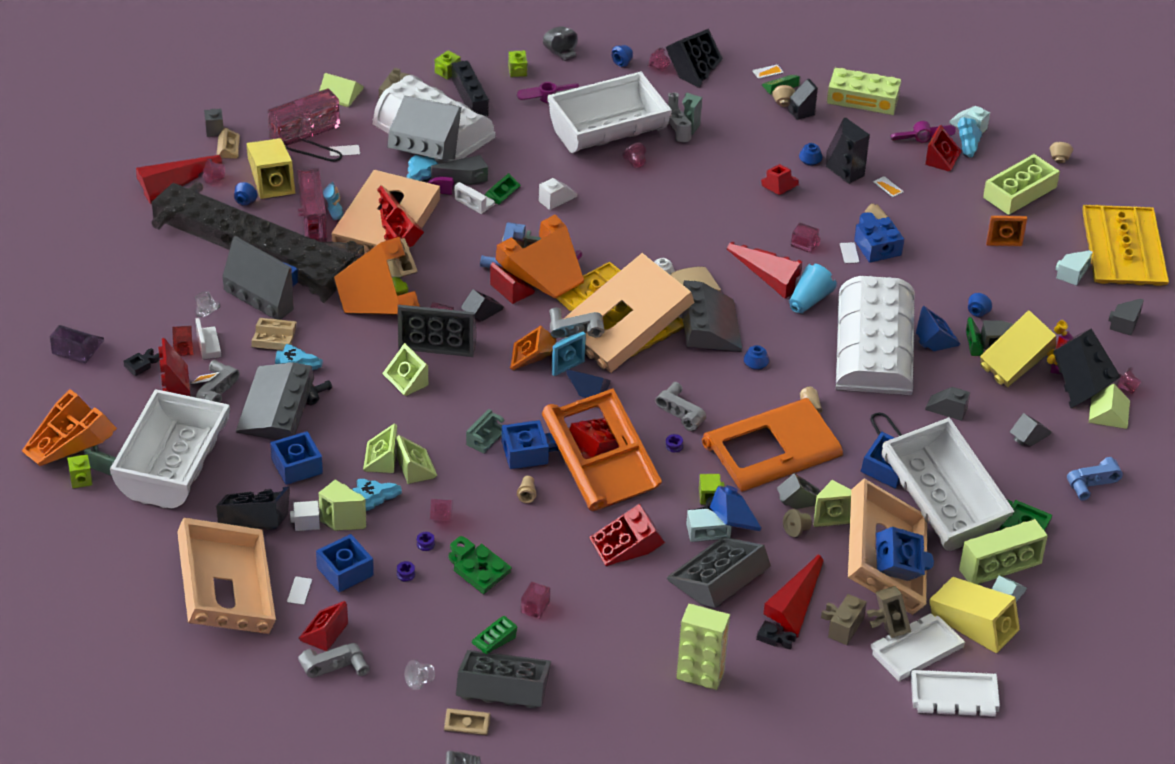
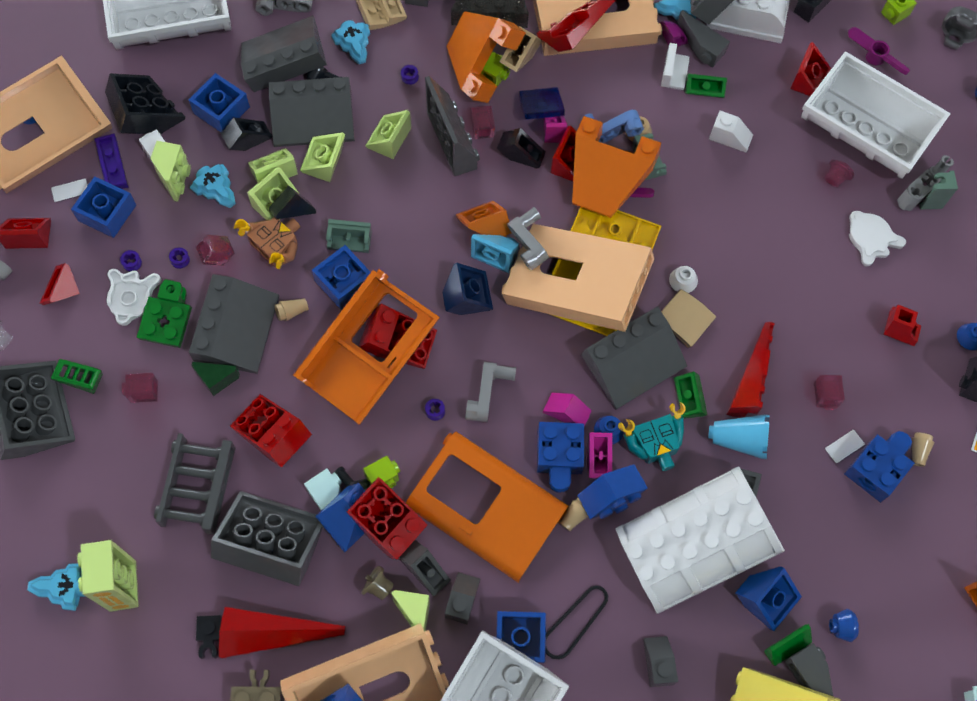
camera: 60 degrees right, 25 degrees up
(291, 552) = (111, 161): none -> dark purple tile
(338, 458) = (245, 134): none -> black slope
(347, 410) = (310, 109): none -> dark grey slope
(355, 338) = (406, 78): none -> dark purple bush
(394, 623) = (60, 285): none -> slope
(402, 411) = (323, 156): none -> yellowish green slope
(433, 448) = (291, 204): none -> black slope
(437, 584) = (129, 294): none -> white tile
(449, 278) = (541, 103): none -> clear blue tile
(459, 475) = (271, 239): none -> nougat torso
(478, 279) = (554, 129): none -> dark pink slope
(515, 529) = (233, 324): none -> dark grey slope
(536, 132) = (811, 71): none -> red slope
(555, 554) = (216, 376): none -> dark green slope
(650, 580) = (213, 497): none -> dark grey fence
(680, 703) = (59, 587): none -> medium azure rock
(697, 166) = (872, 236): none -> white tile
(724, 373) = (567, 408): none -> dark pink slope
(758, 307) = (691, 394): none -> green slope
(758, 387) = (561, 452): none -> blue brick
(758, 489) = (386, 519): none -> red slope
(776, 366) = (599, 454): none -> dark pink slope
(782, 333) = (656, 438): none -> teal torso
(812, 365) = (612, 492): none -> blue brick
(841, 476) = (462, 598): none -> dark grey slope

